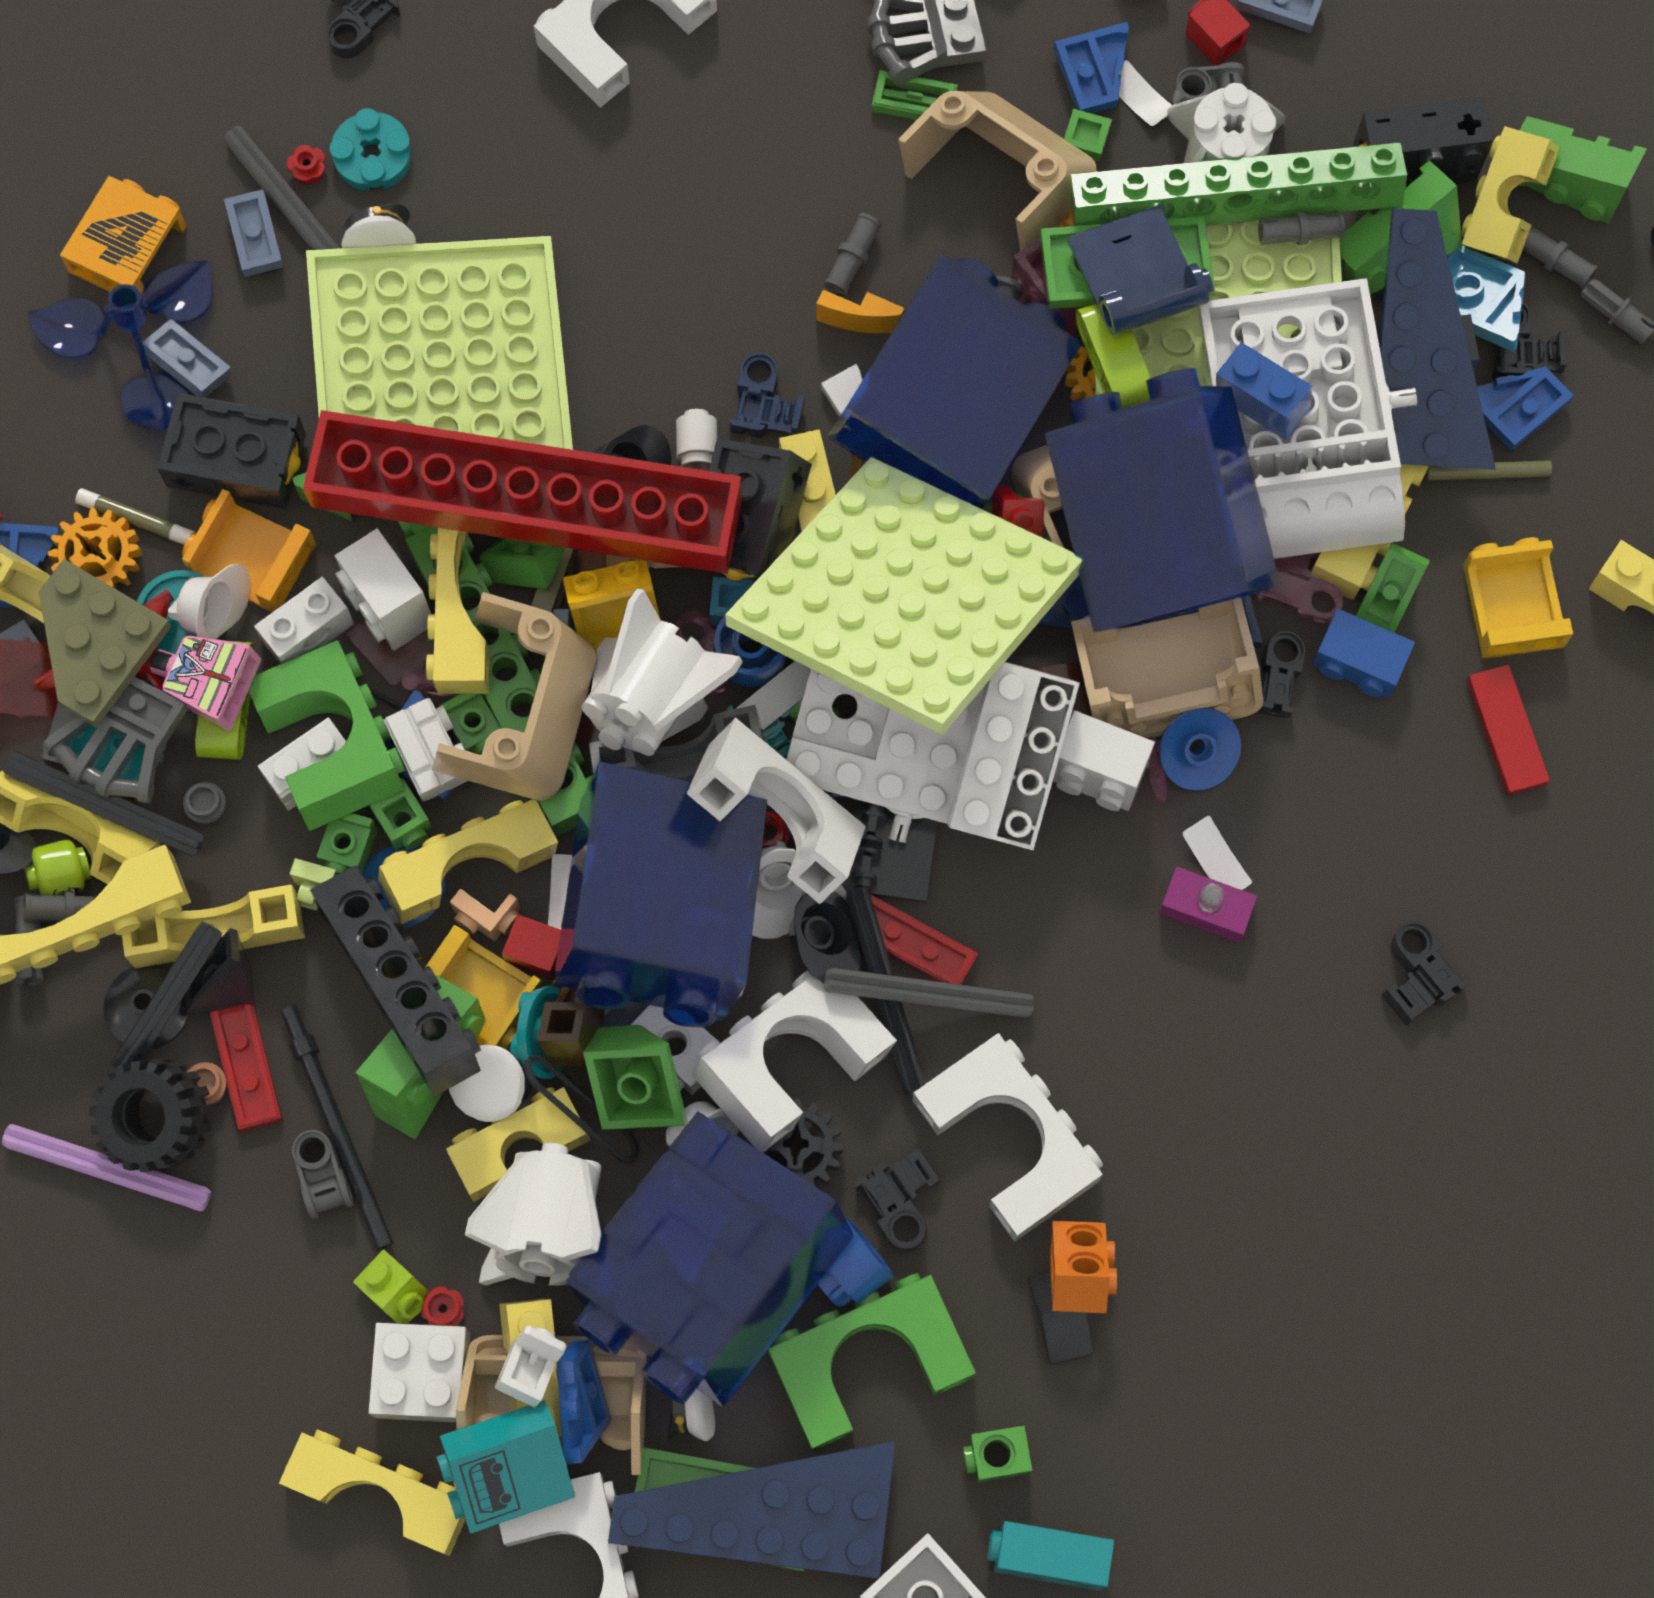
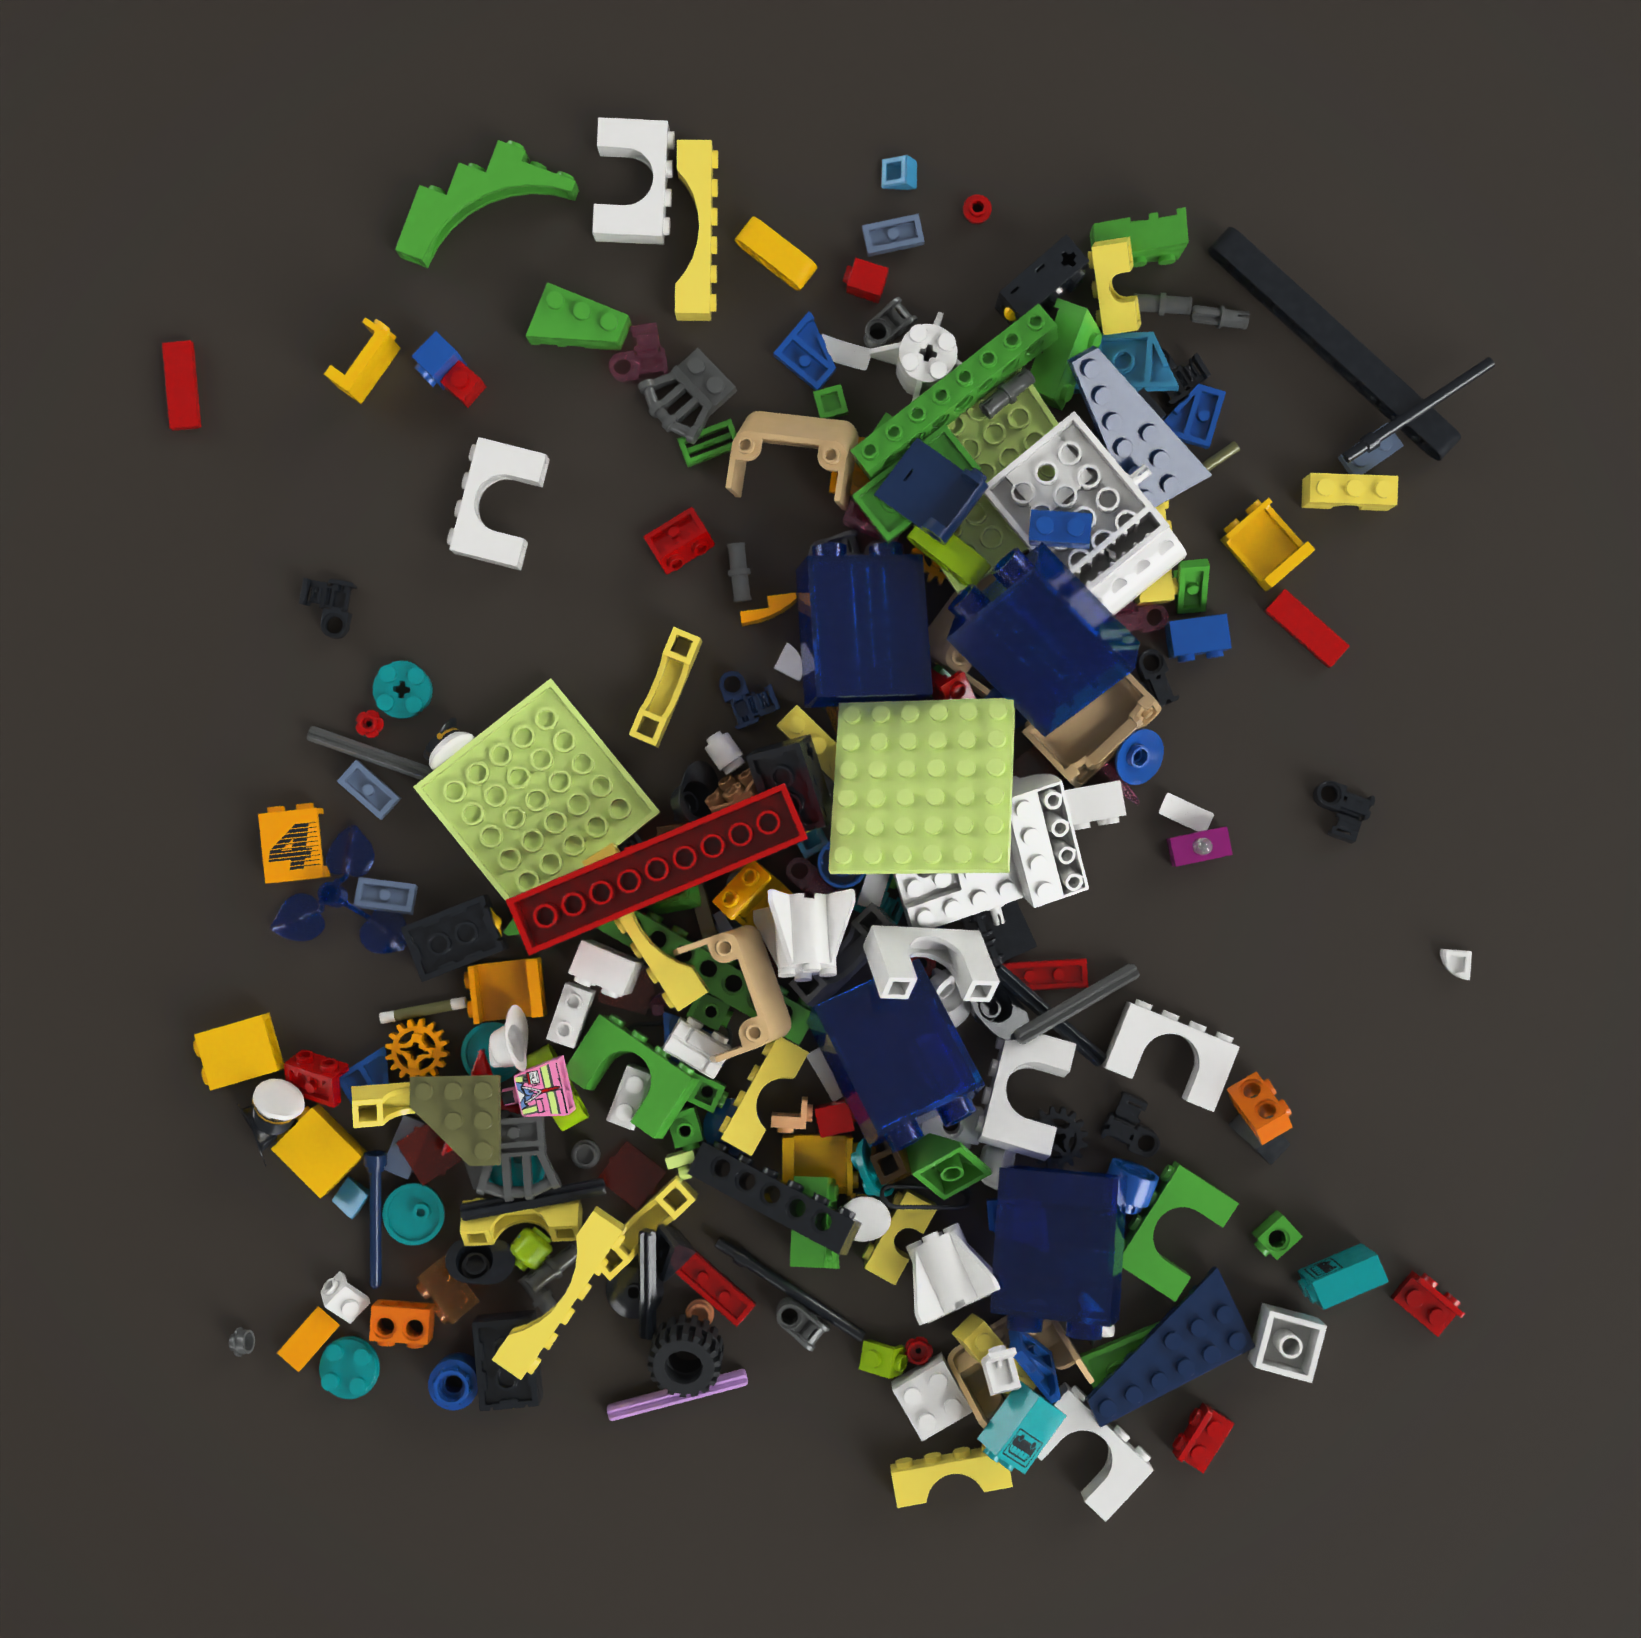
camera: 30 degrees left, 15 degrees up
(240, 862) = (632, 1175): none -> clear red piece
(646, 346) = (667, 687): none -> light yellow arch
(805, 180) = (679, 540): none -> red bracket
(1398, 40) = (977, 217): none -> red plate
(1454, 1257) = (1457, 962): none -> white tile

